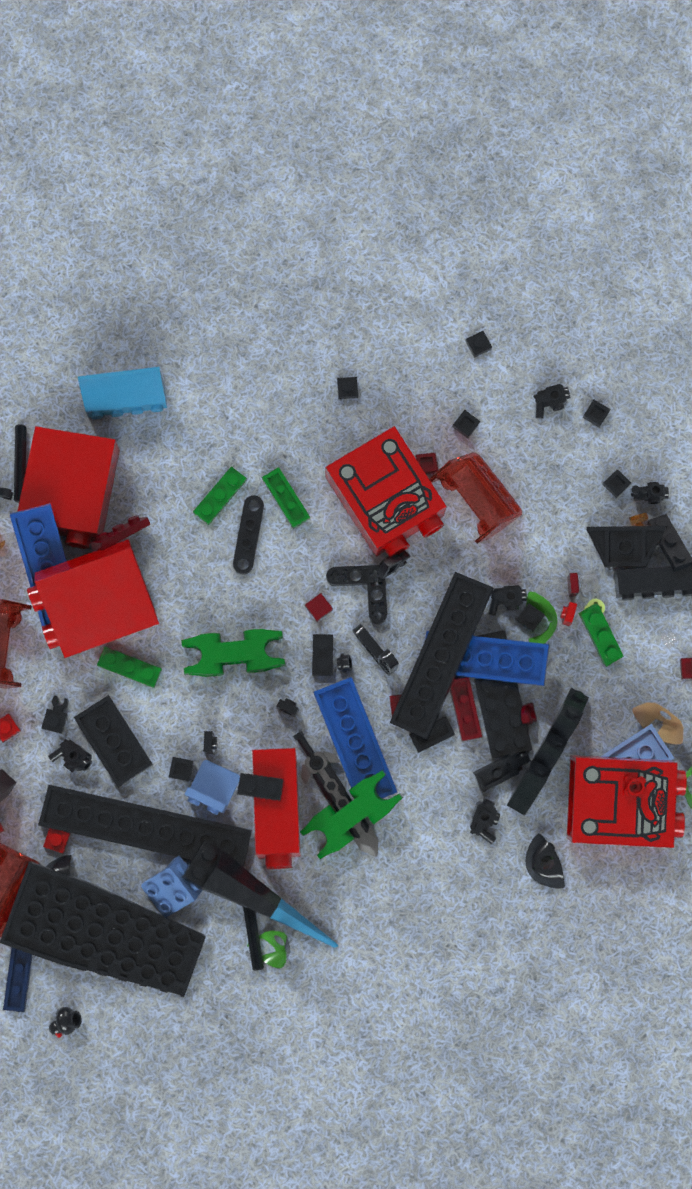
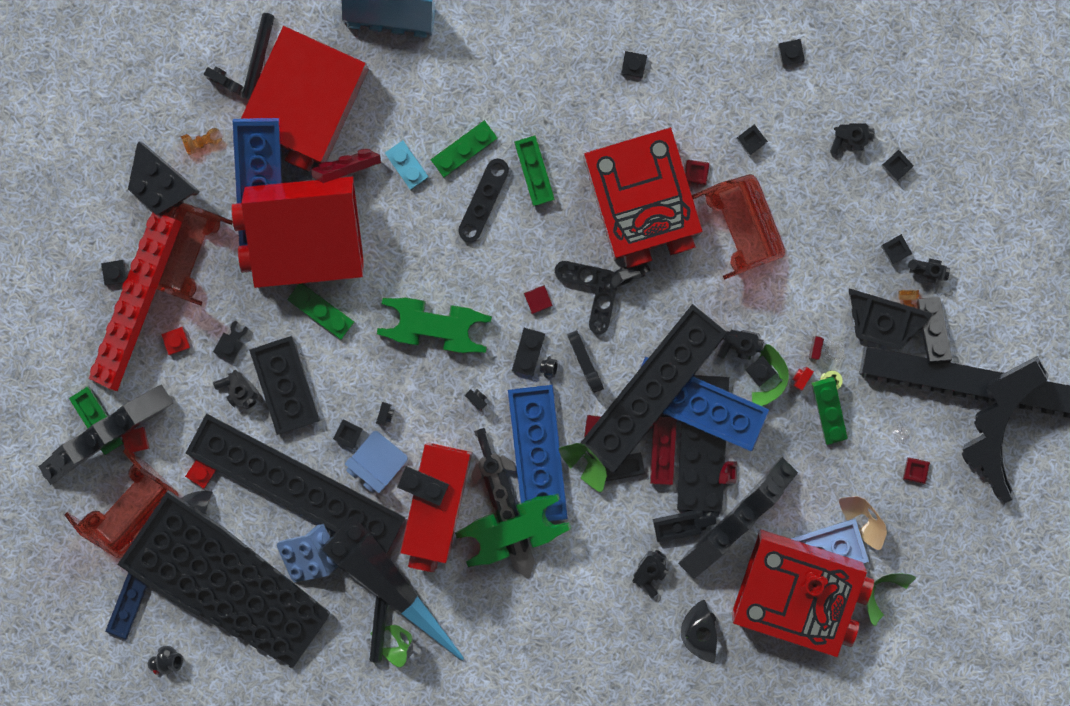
camera: 25 degrees right, 10 degrees up
(173, 522) = (406, 165): none -> medium azure plate
(410, 743) = (594, 473): none -> bright green piece

